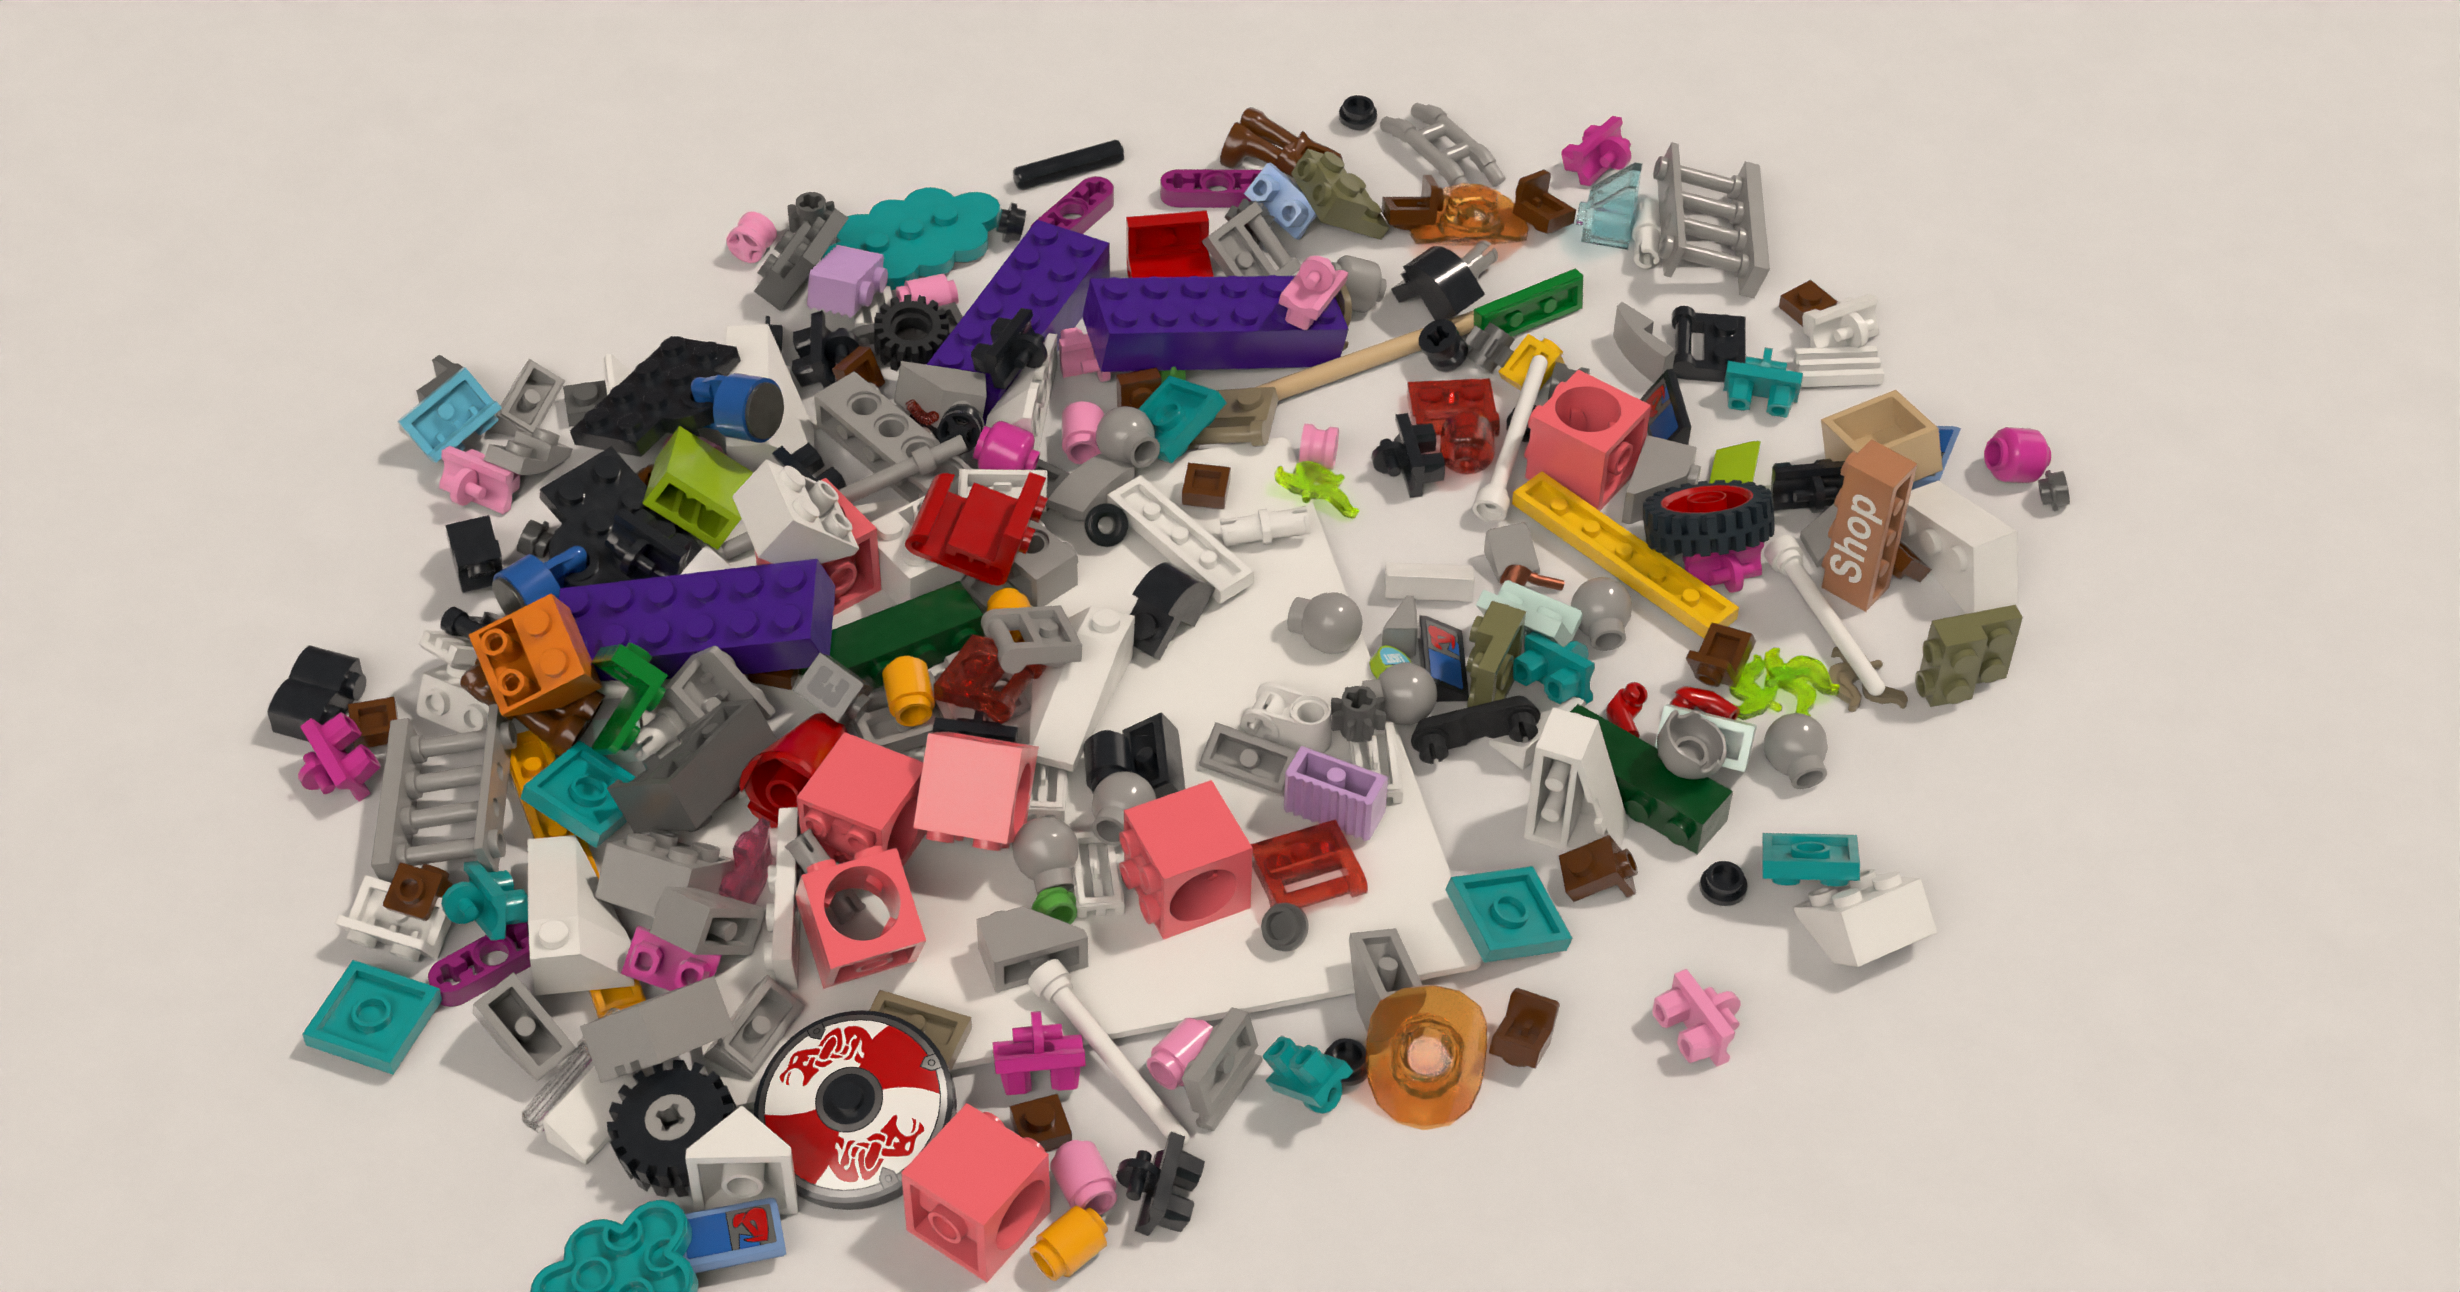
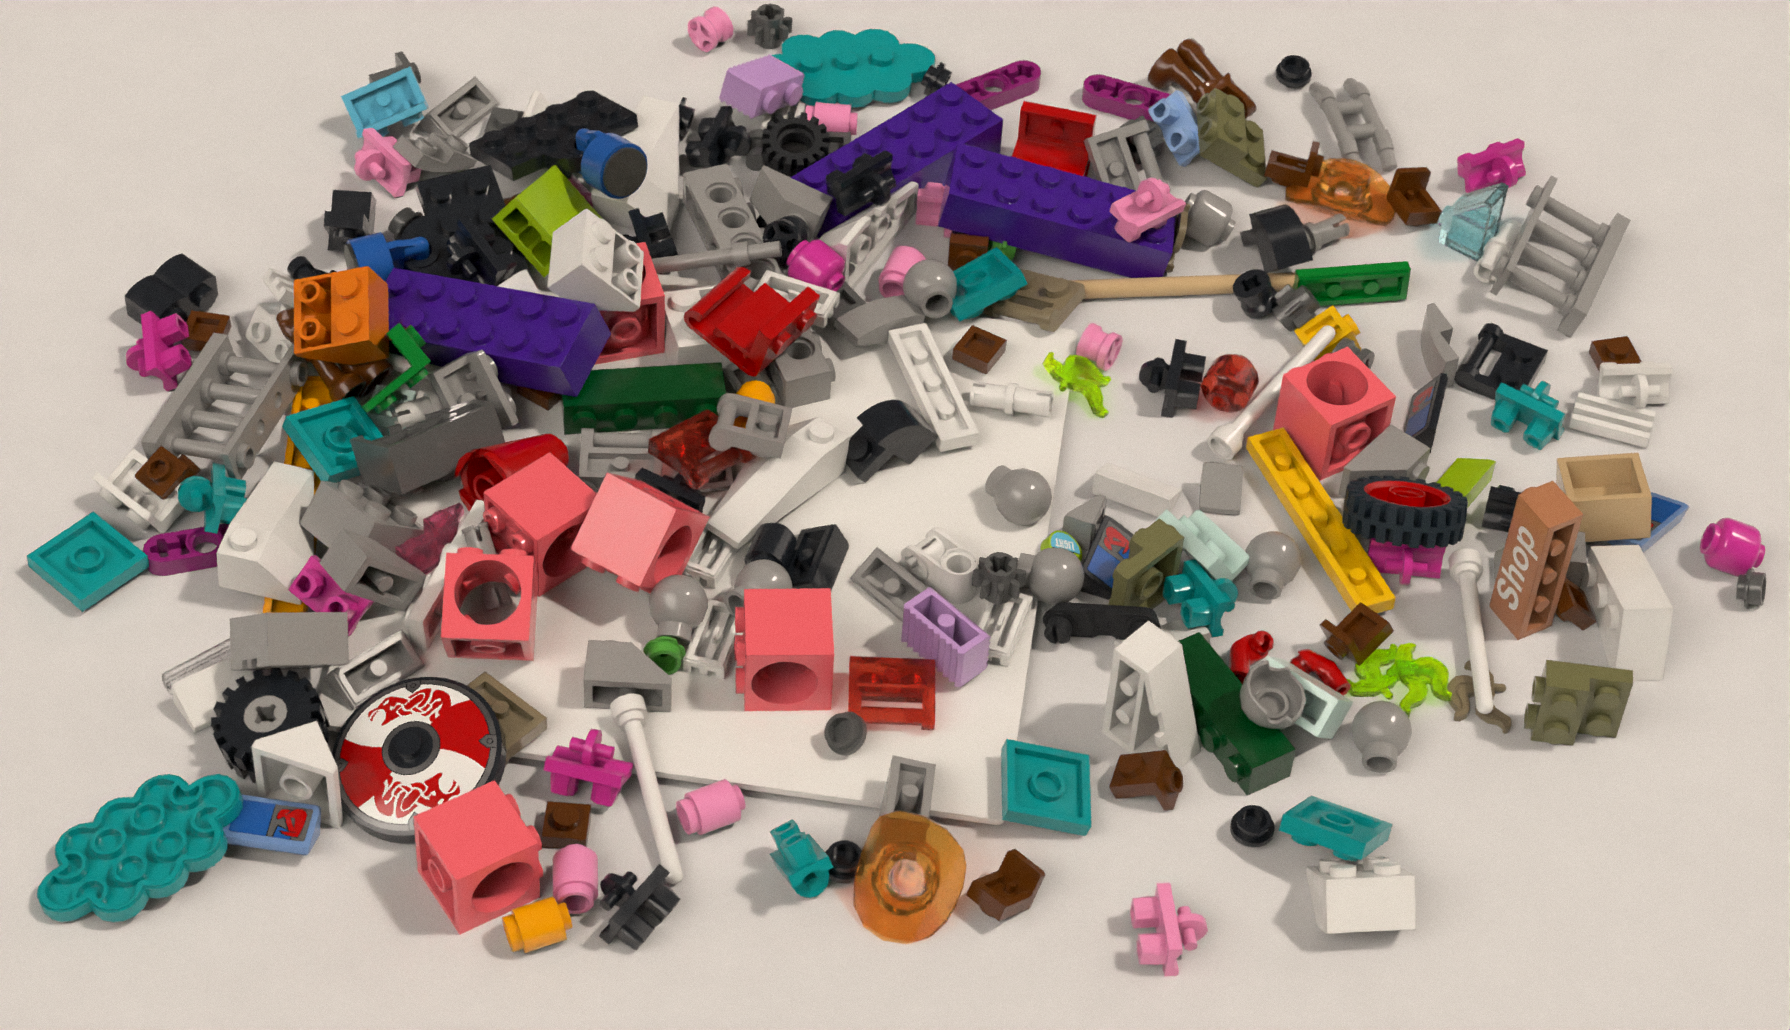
camera: 20 degrees right, 0 degrees up
(522, 1027) = (193, 606): light grey slope -> none
(797, 257) = (735, 50): dark grey plate -> none
(835, 690) = (568, 417): brick -> none
(863, 363) = (742, 164): reddish brown plate -> none
(908, 690) = (631, 438): light orange brick -> none
(921, 413) = (764, 216): clear red leg -> none
(1068, 164) = (1014, 44): black axle -> none
(1119, 529) = (863, 356): black plate -> none
(1222, 1068) = (732, 830): light grey plate -> none
(1441, 399) = (1255, 344): clear red plate -> none
(1521, 575) = (1215, 510): copper hand -> none

